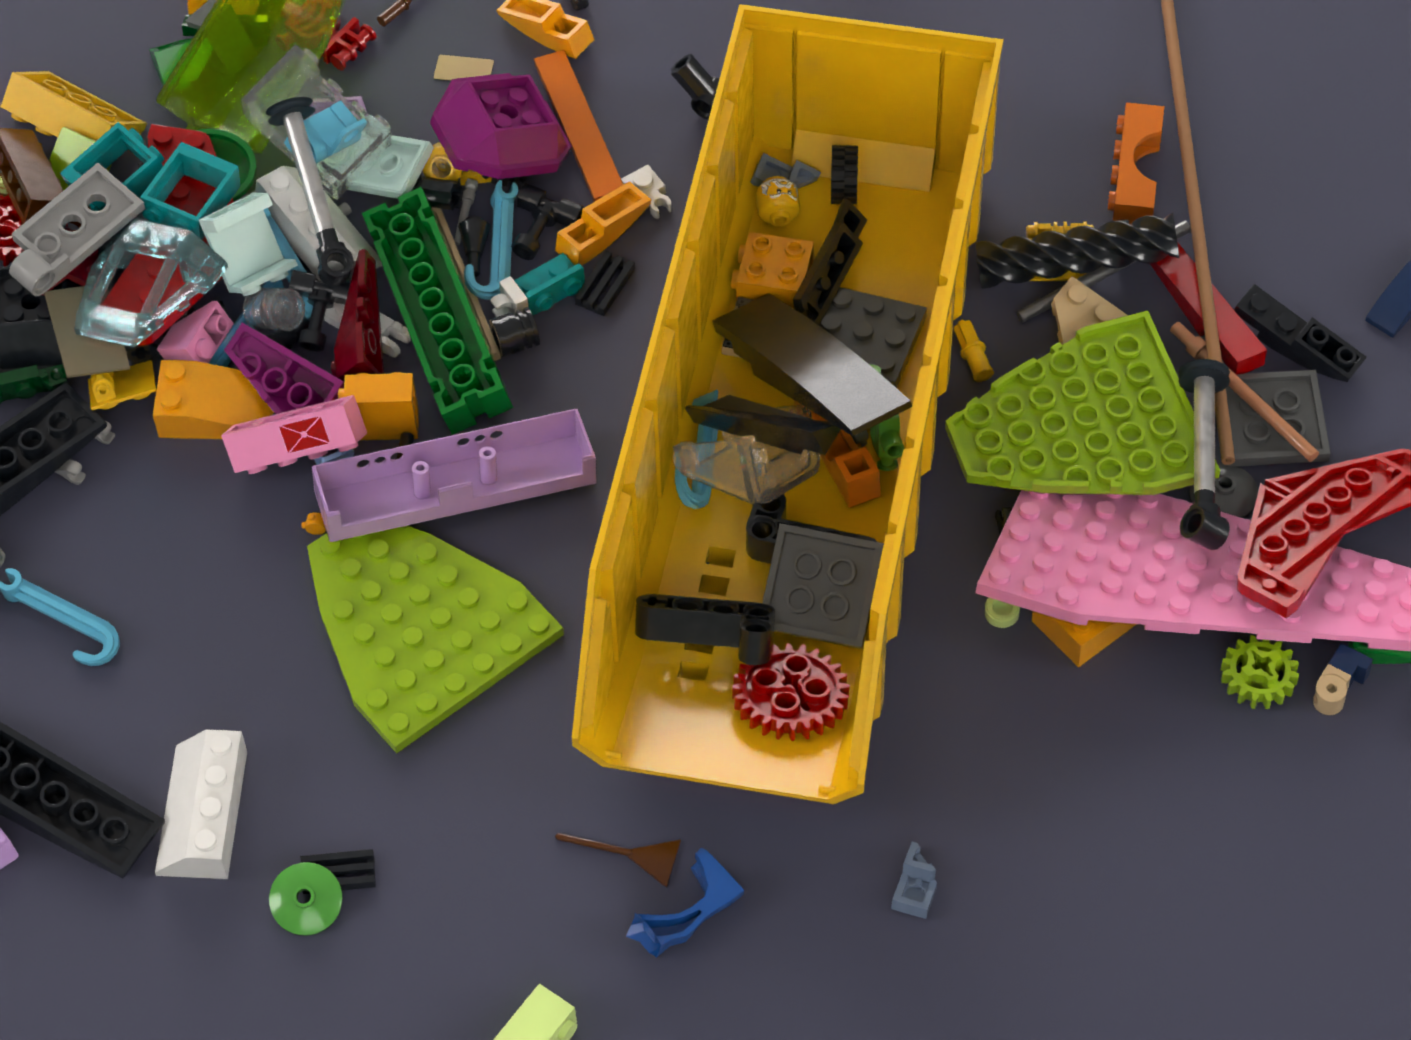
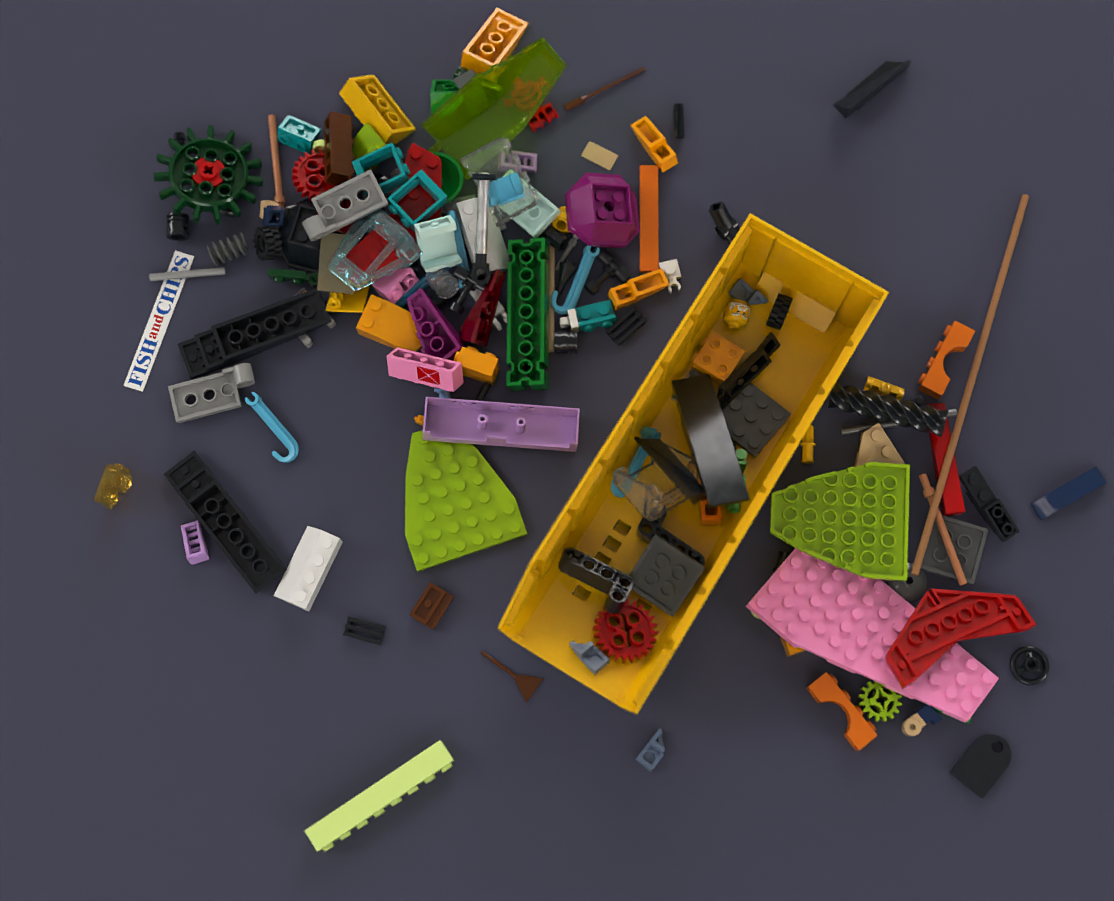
camera: 20 degrees right, 20 degrees up
(311, 916) = (351, 637): bright green dish -> none
(441, 791) = (431, 606): none -> reddish brown plate
(663, 931) = (516, 731): blue animal -> none
(747, 745) = (590, 656): none -> sand blue slope
(1168, 688) = (858, 730): none -> orange arch
(1203, 519) = (884, 610): piece -> none

